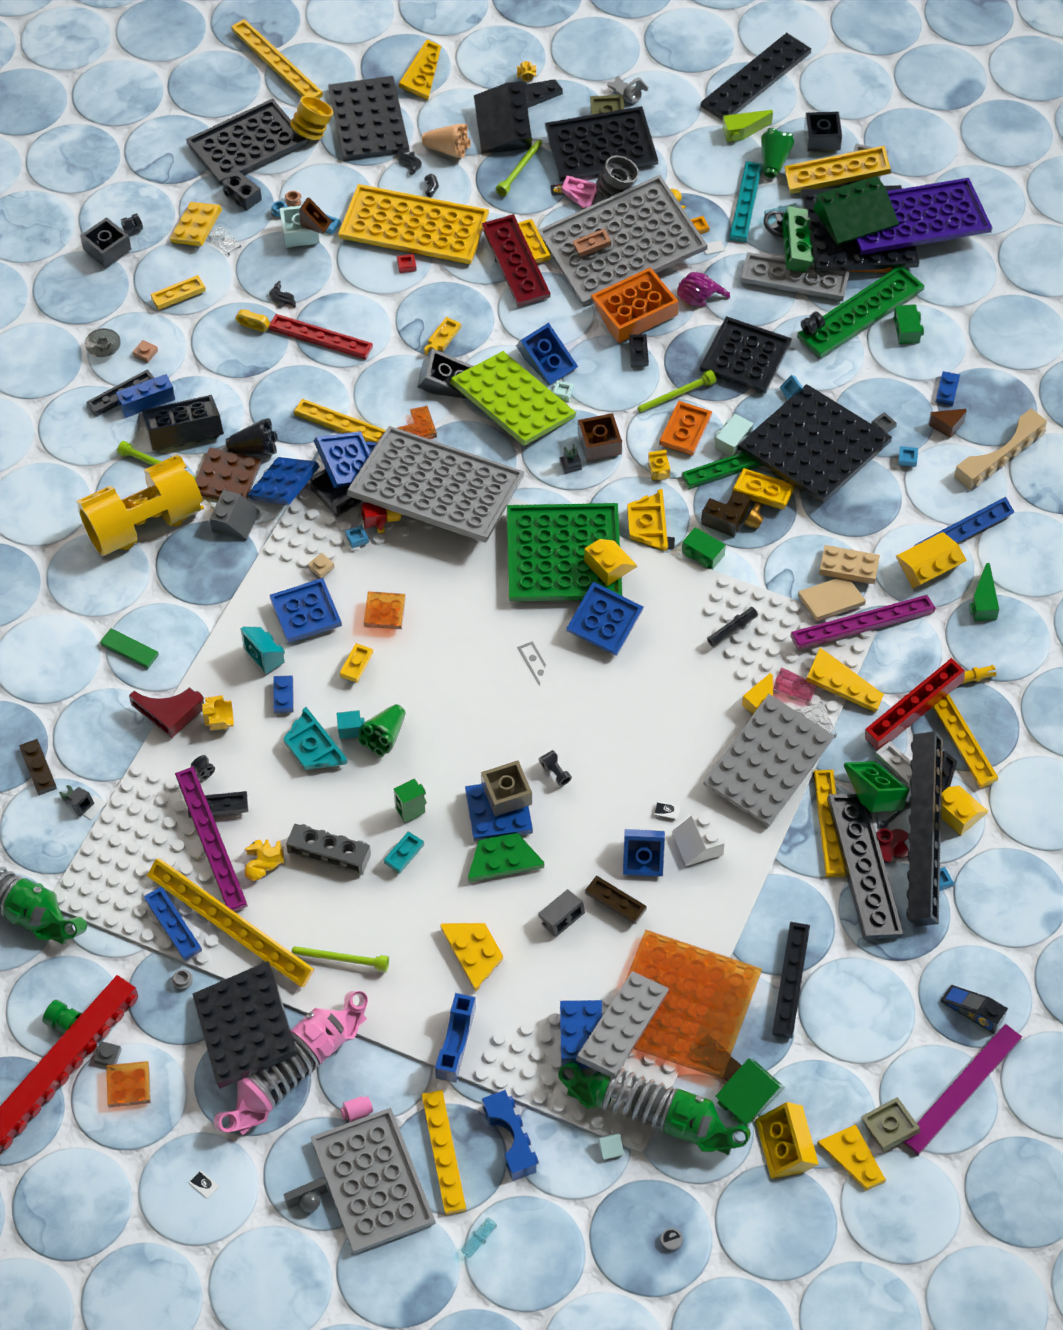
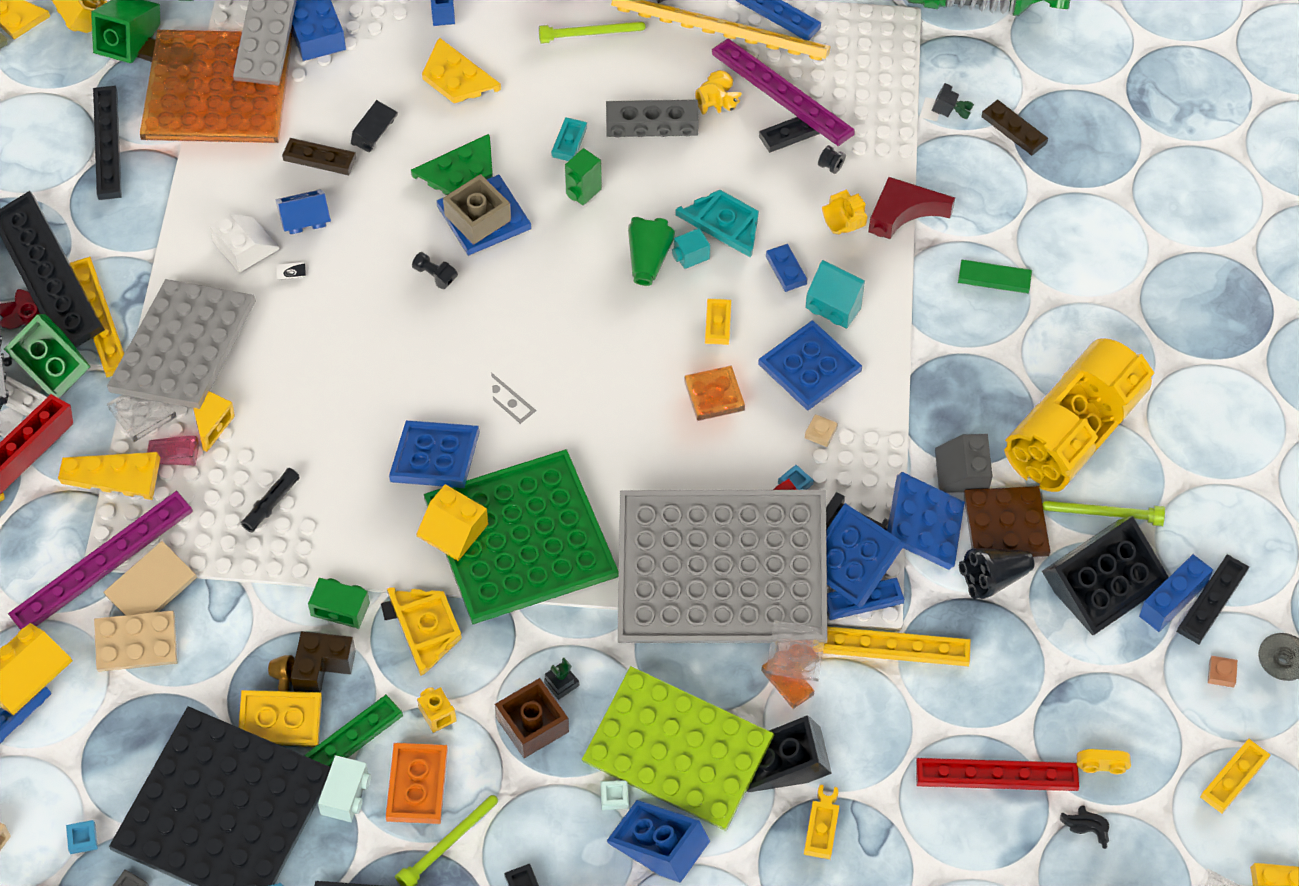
camera: 160 degrees right, 0 degrees up
(412, 424) = (796, 650): none -> clear plate

